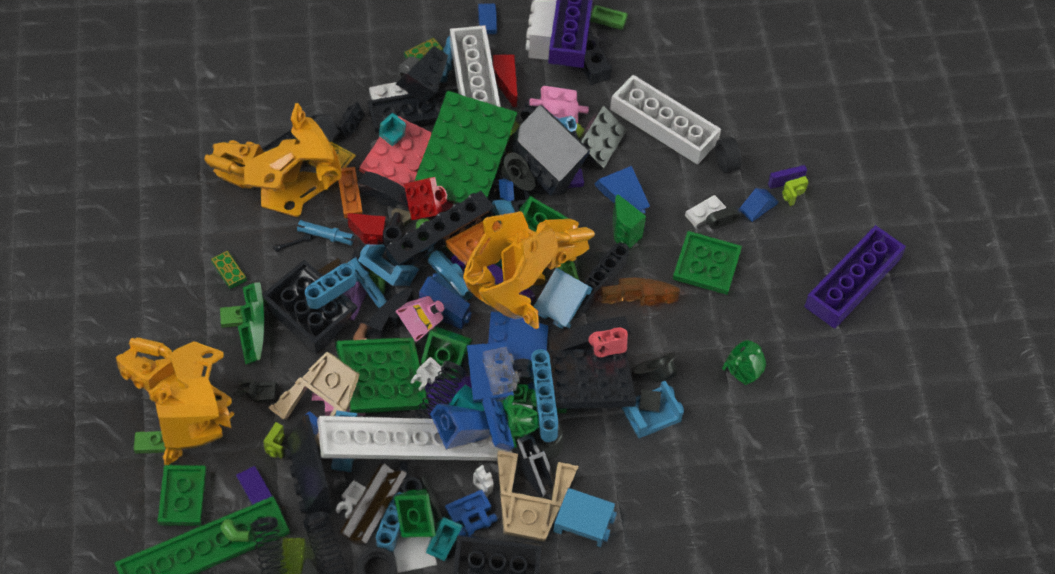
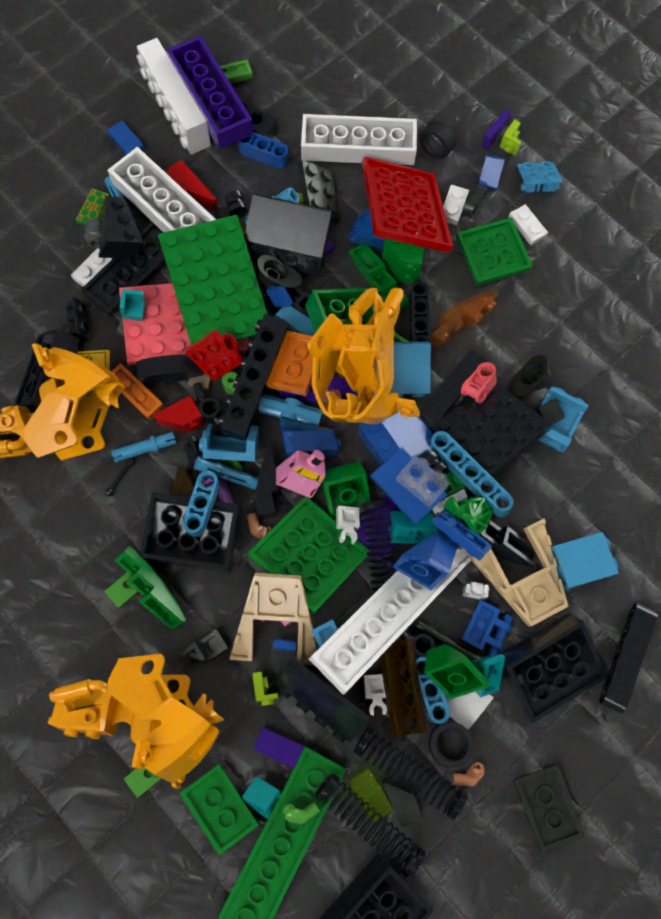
camera: 35 degrees left, 15 degrees up
(216, 505) = (261, 797): none -> teal panel
(228, 269) = (81, 546): green tile -> none
(559, 102) = (257, 180): bright pink plate -> none
(586, 85) = (264, 150): none -> blue beam
(599, 224) = (375, 272): none -> green slope
(655, 181) = (405, 205): none -> red plate
(746, 364) = (604, 328): green piece -> none
(754, 261) = (528, 224): none -> white plate
(795, 229) = (539, 174): none -> dark azure hinge
(854, 276) = (622, 186): dark purple brick -> none

